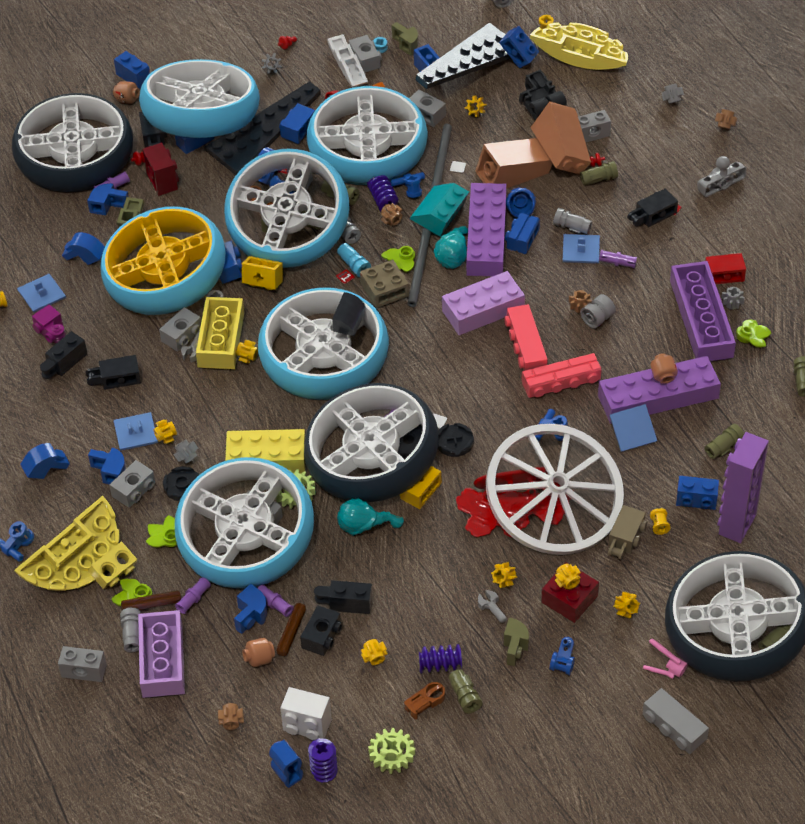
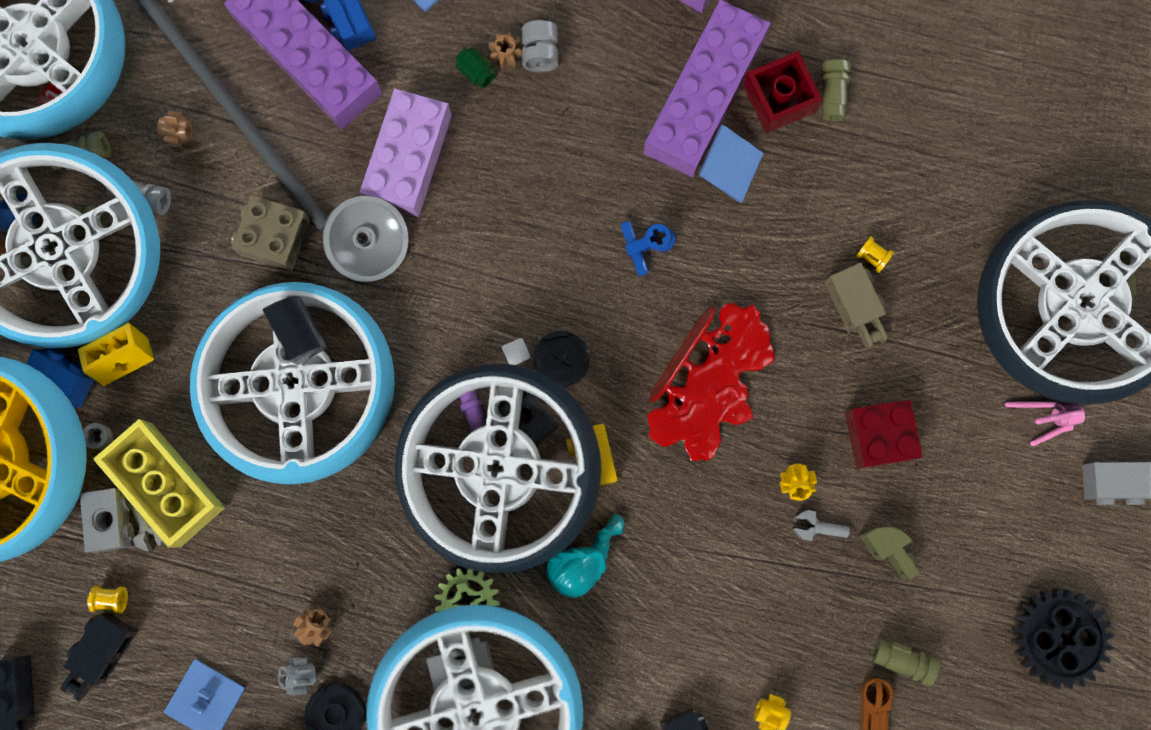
camera: 45 degrees left, 30 degrees up
(145, 358) = (107, 599): none -> yellow bush
(165, 431) = (244, 674): yellow gear -> none
(215, 439) = (312, 627): none -> medium nougat gear
(247, 351) = (216, 475): yellow gear -> none
(278, 446) = (384, 588): light yellow brick -> none
(345, 276) = (209, 260): red sticker -> none
(346, 596) = (671, 679): black brick -> none
(353, 259) = (193, 231): medium azure axle -> none
(382, 191) = (131, 108): dark purple piece -> none
(402, 257) = (247, 183): lime plate -> none
(411, 182) = (149, 61): blue piece -> none
(423, 304) = (384, 242): none -> light grey dish
(440, 207) = (220, 68): teal slope -> none
(440, 658) = (845, 651): dark purple piece -> none
(452, 248) = (293, 112): teal hair -> none
(525, 337) = (505, 157): coral brick -> none
(553, 490) = (742, 328): white wheel -> none
(554, 751) = (1082, 657): none -> black gear
(557, 297) = (475, 67): none -> dark green brick
(561, 375) = (588, 167): coral brick -> none
(563, 657) = (960, 519): blue piece -> none
(567, 576) = (891, 434): yellow gear -> none
(626, 604) = (951, 392): yellow gear -> none
(664, 368) = (707, 63): nougat head -> none
(693, 418) = (782, 92): none -> dark red brick
(697, 492) = (875, 183): blue brick -> none
(742, 486) = (971, 145): medium lavender brick -> none

